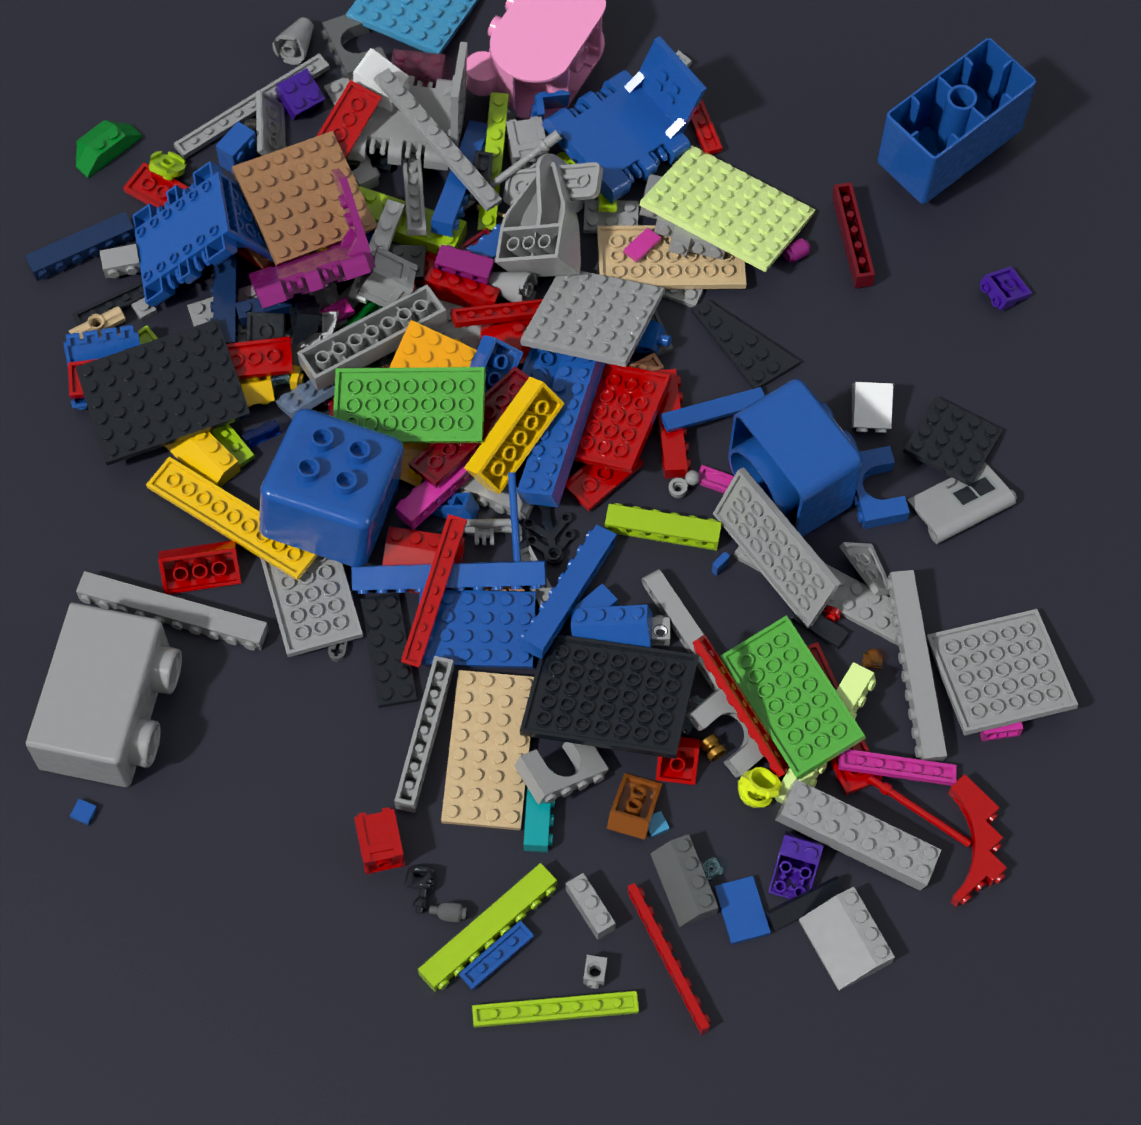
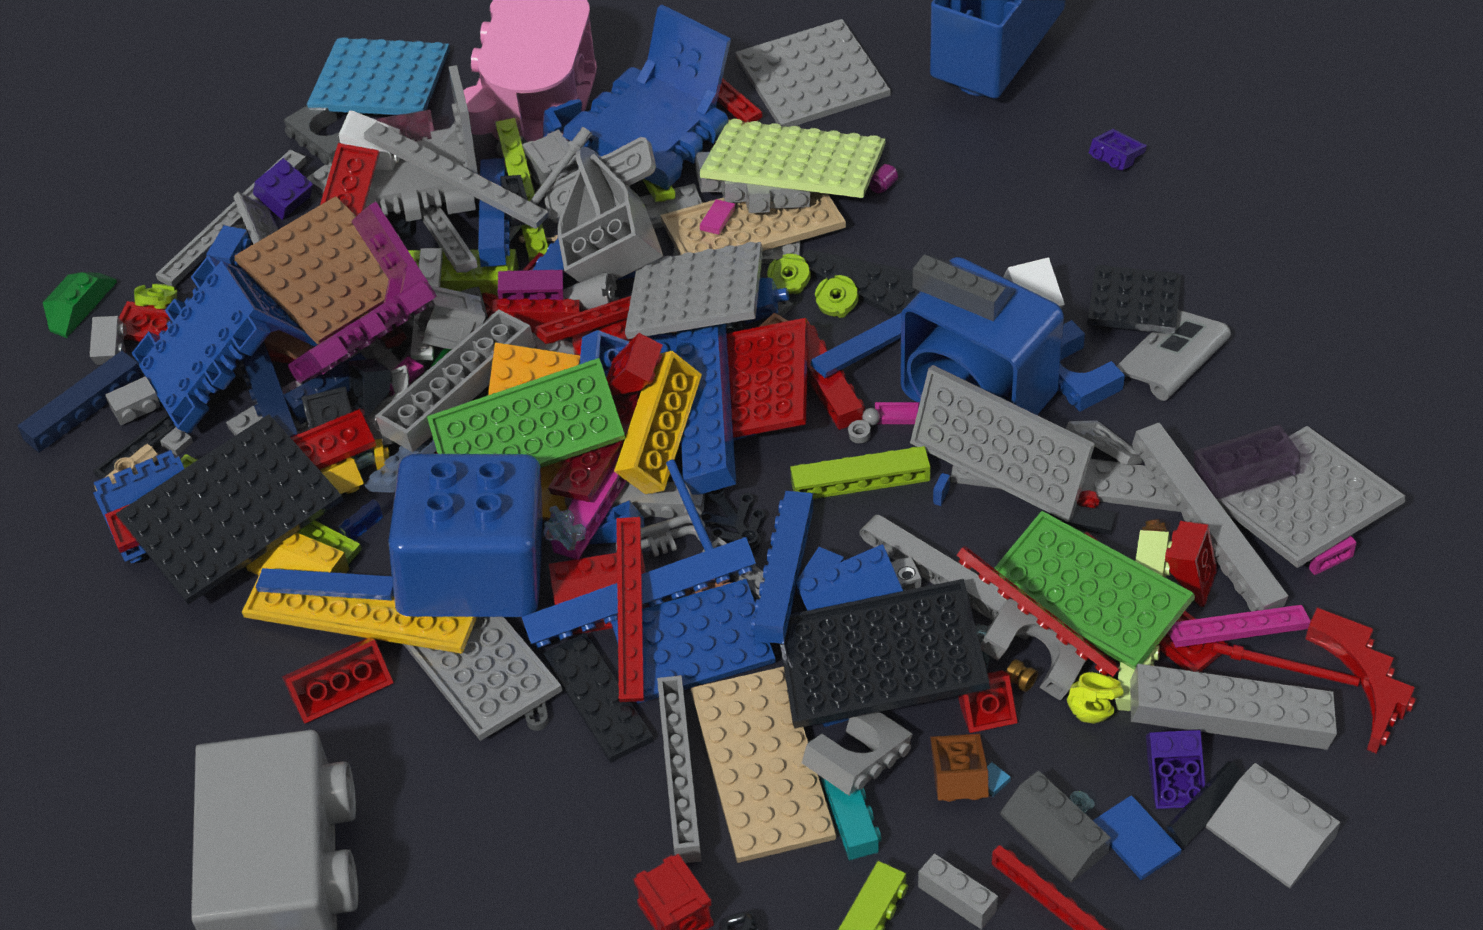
camera: 15 degrees left, 15 degrees down
(116, 196) = (106, 338): none -> light grey brick
(173, 611) = (343, 732): light grey brick -> none
(213, 484) = (325, 584): none -> blue tile
(294, 41) = (257, 147): light grey cone -> none
(403, 505) = (561, 528): none -> clear light blue hips
(509, 382) = (634, 365): none -> red slope
(595, 483) = (767, 452): red plate -> none
(683, 328) = (788, 263): none -> lime plate
(715, 363) = (842, 305): none -> lime plate
(782, 120) = (812, 74): none -> light grey plate
(788, 411) = (961, 286): none -> dark grey slope
(853, 235) = (937, 147): dark red brick -> none
(884, 701) = (1193, 559): none -> red slope
(968, 629) = (1247, 461): none -> clear purple brick

